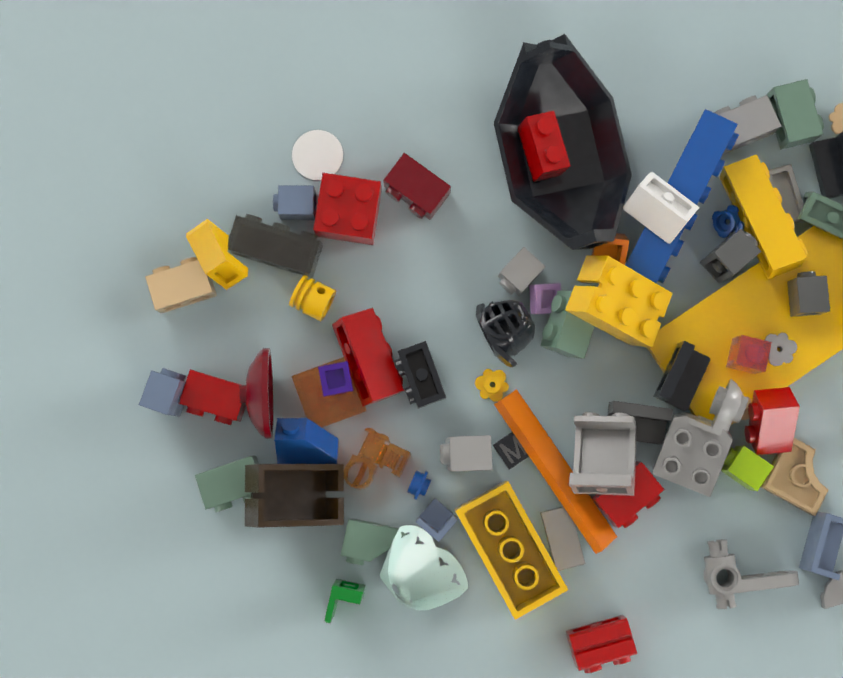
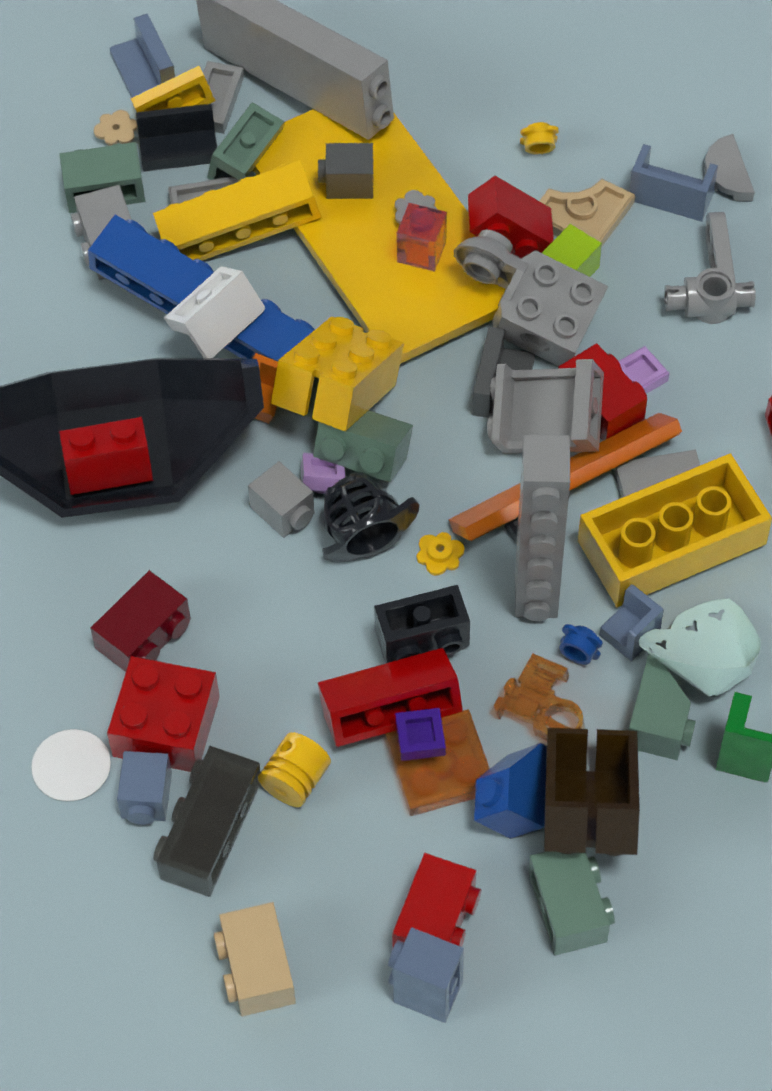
camera: 85 degrees left, 25 degrees down
(211, 249) = (214, 891): yellow slope -> none
(259, 393) = (437, 819): dark red dish -> none
(653, 523) = (644, 369): none -> lavender tile
(682, 376) = (443, 317): black panel -> none
(719, 221) = (244, 250): blue plate -> none
(731, 256) = (288, 250): dark grey brick -> none

